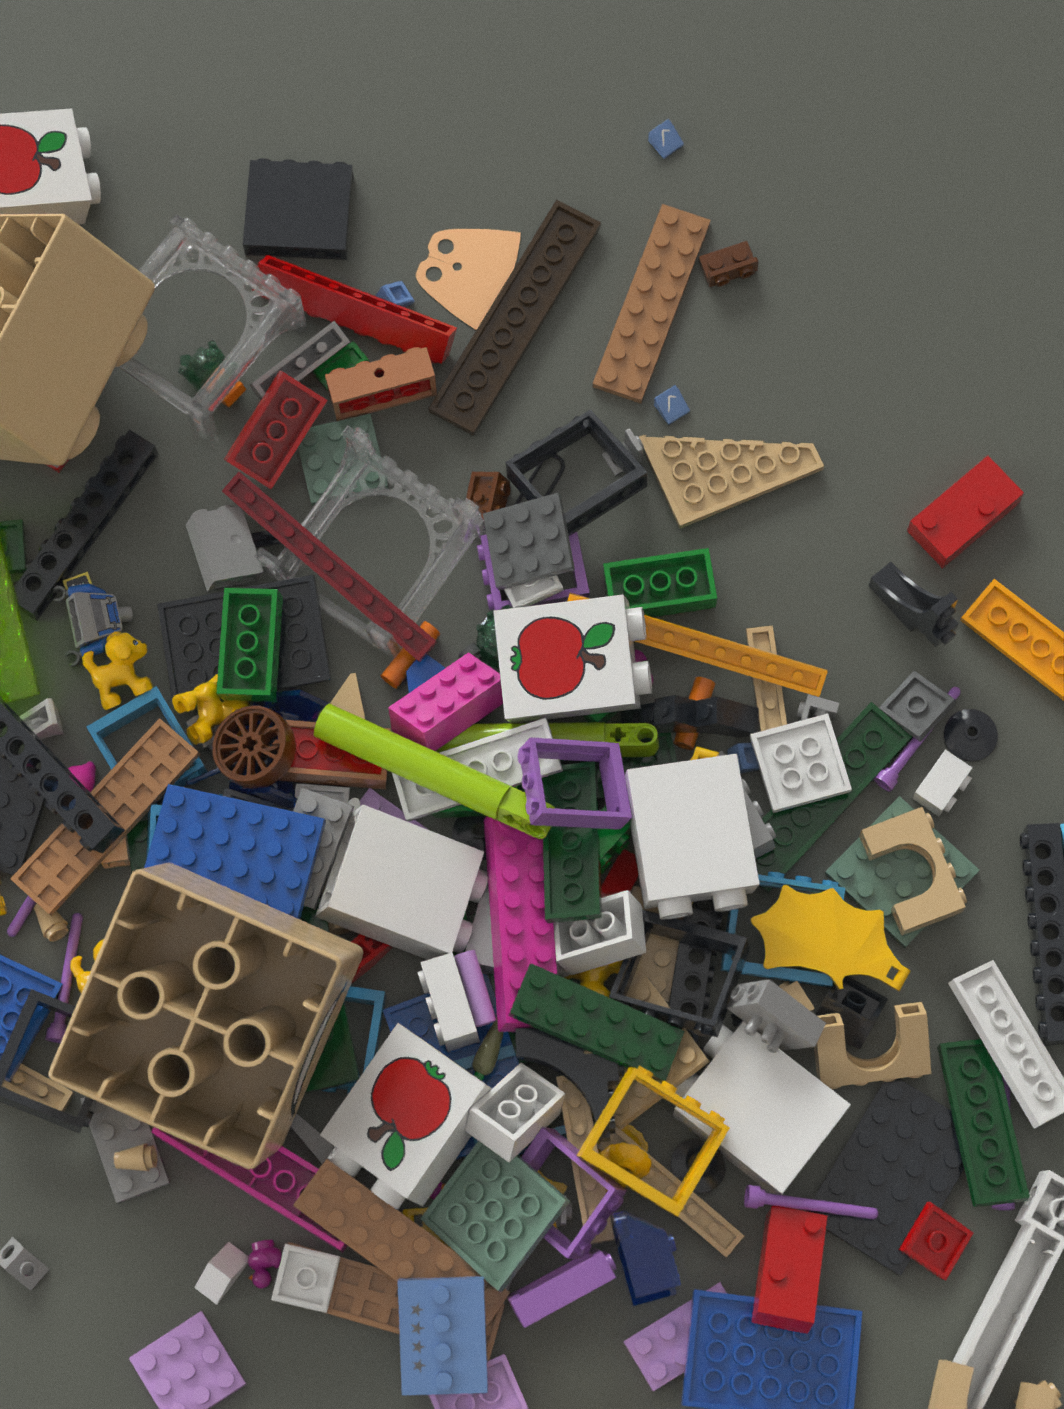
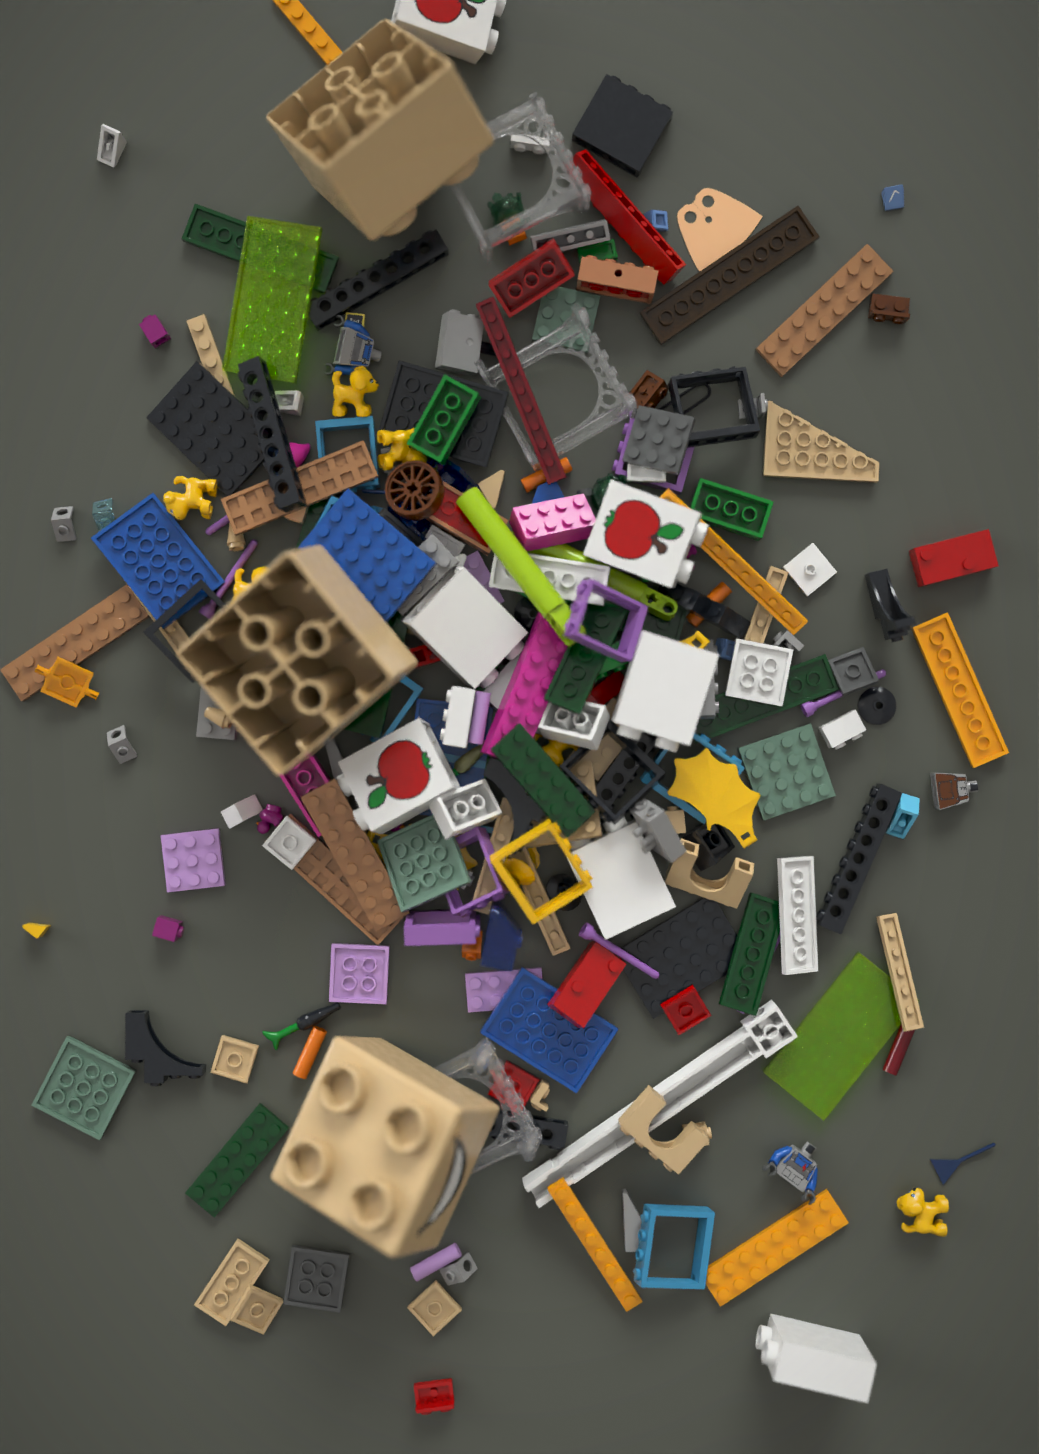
camera: 20 degrees right, 15 degrees up
(187, 283) = (523, 143): none -> white plate
(443, 1335) = (355, 919): medium blue plate -> none
(614, 1299) = (473, 951): none -> orange bracket
(671, 405) = (800, 389): medium blue slope -> none
(797, 611) = (809, 569): none -> white plate
(915, 833) = (802, 803): tan arch -> none

